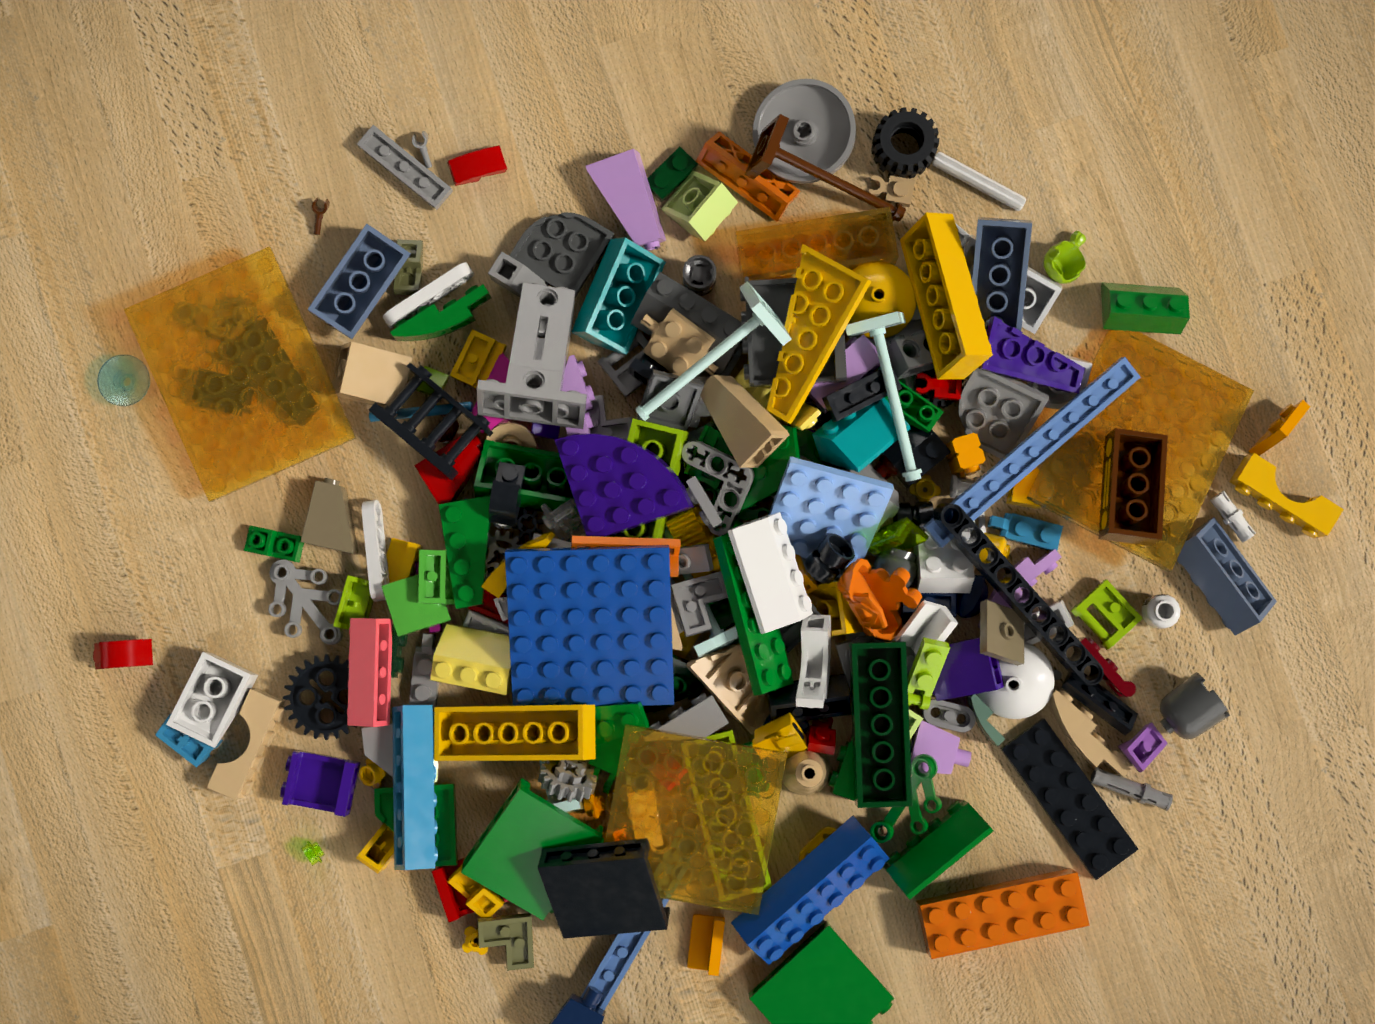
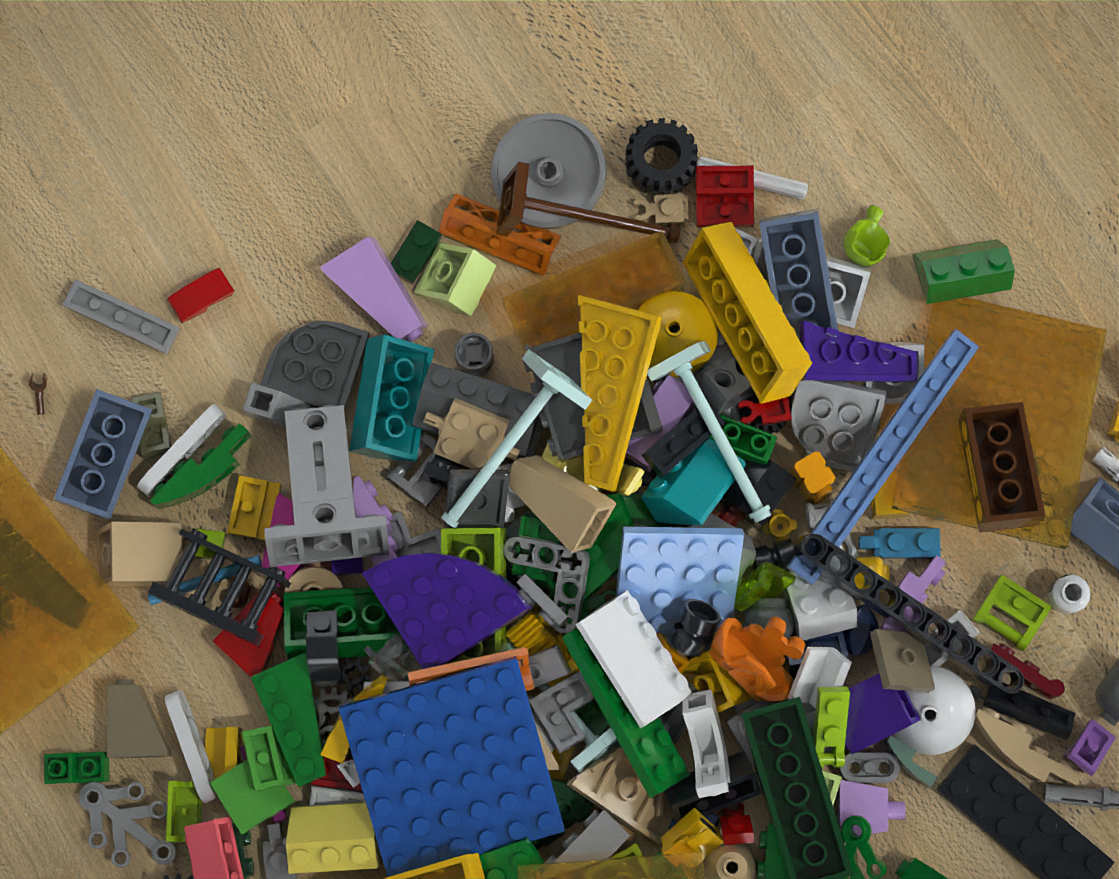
camera: 15 degrees left, 5 degrees down
(423, 149) = (136, 291): light grey hand -> none
(952, 190) = (725, 195): none -> red slope

